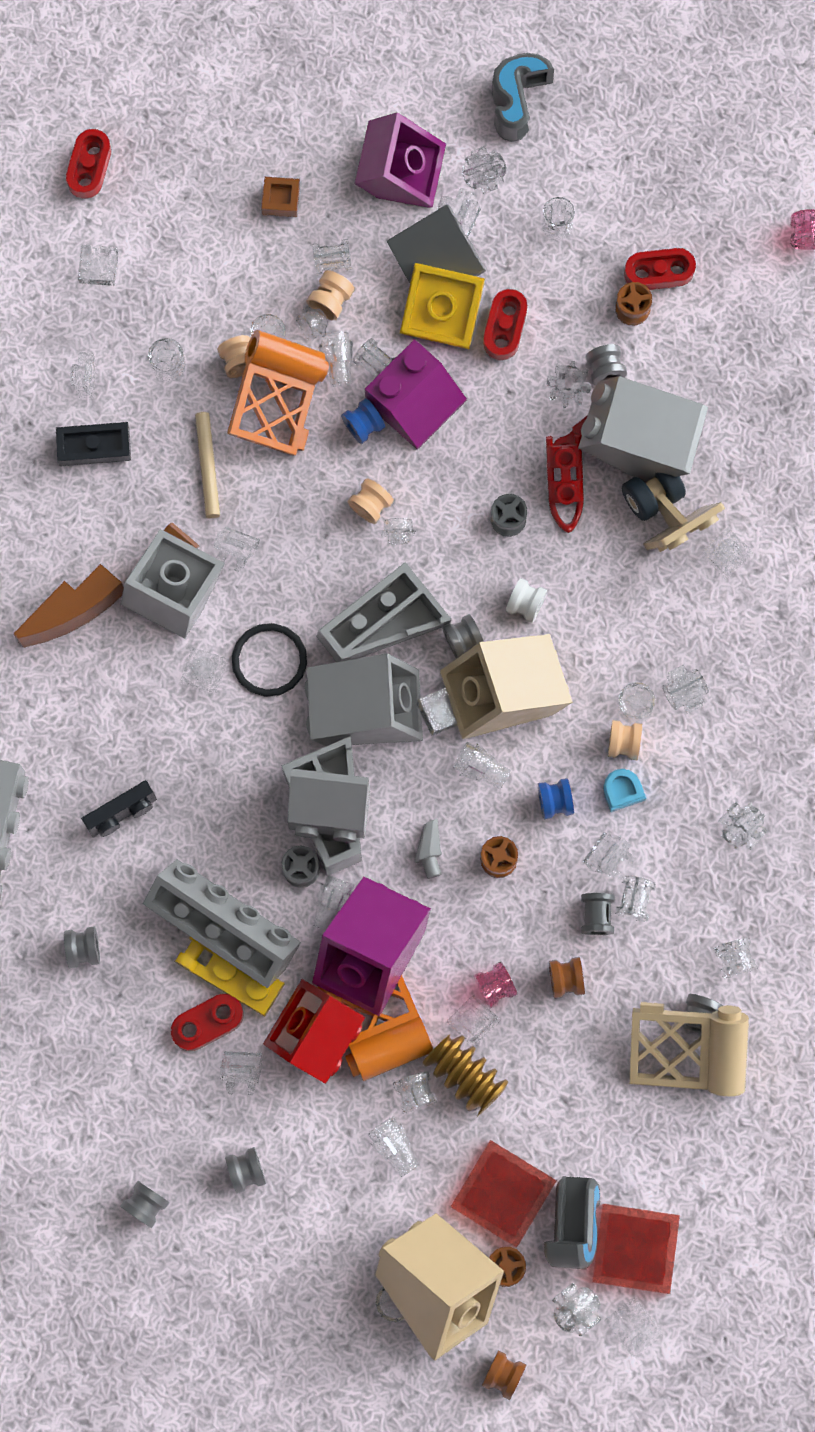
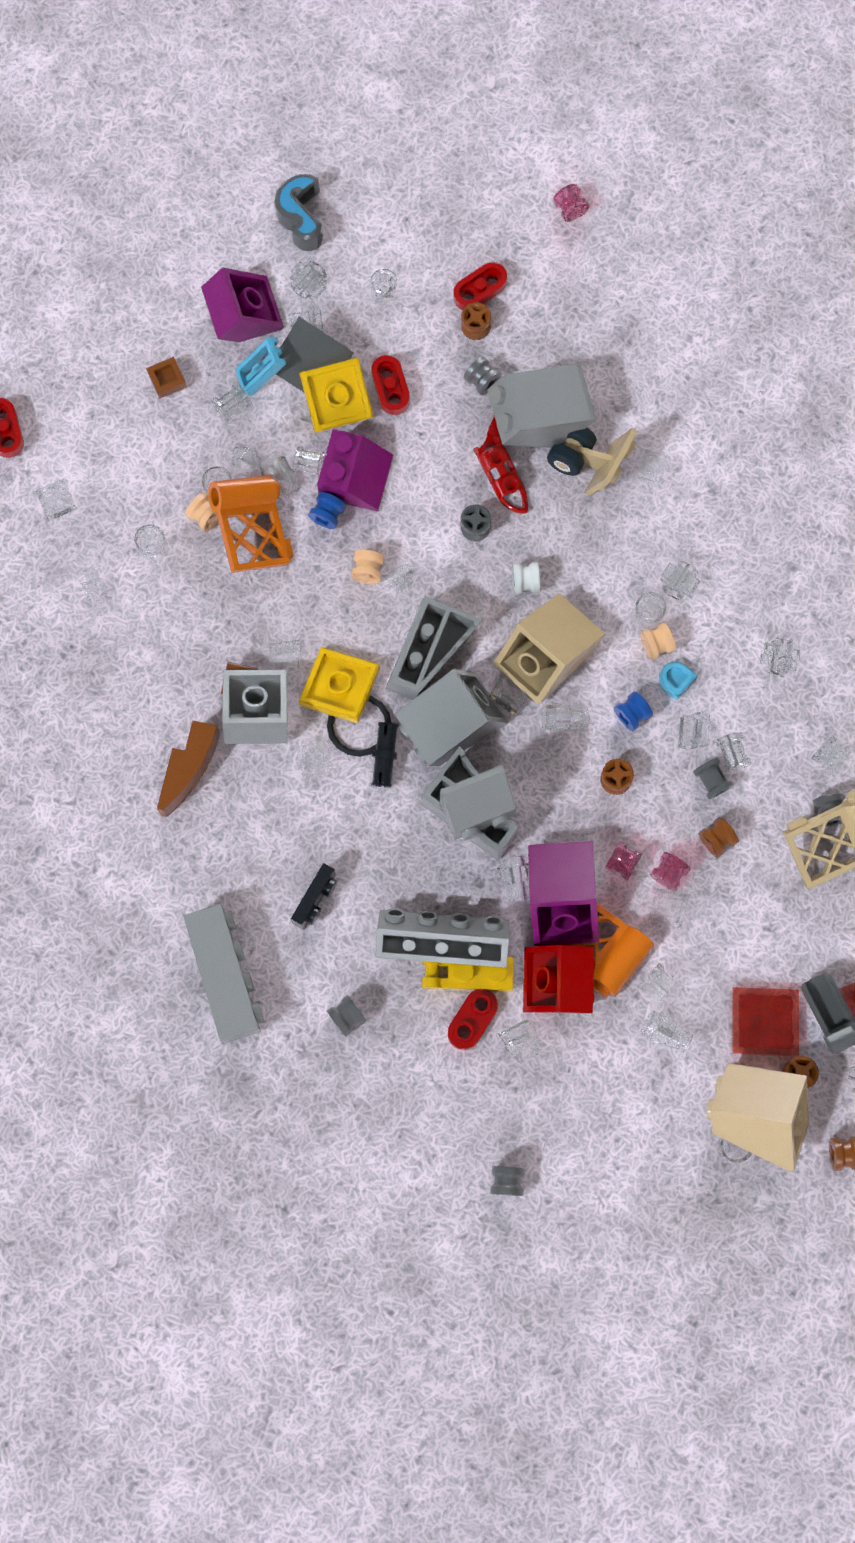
camera: 30 degrees left, 0 degrees up
(93, 444) = (131, 635): black plate -> none
(207, 465) = (227, 605): tan bar -> none
(245, 1170) = (567, 1112): flat silver wheel -> none
(271, 608) = (339, 685): none -> yellow tile
(275, 704) = (384, 754): none -> black pin
(297, 860) = (477, 858): flat silver wheel -> none
(331, 294) = (247, 429): light nougat wheel -> none
(379, 241) = (263, 370): none -> medium azure tile
(429, 849) = (561, 799): light grey bar -> none
(454, 947) = (623, 860): none -> clear pink wheel
(462, 635) = (495, 629): flat silver wheel -> none
(465, 1073) = (688, 948): pearl gold piece -> none
(565, 394) = (456, 407): clear gear -> none

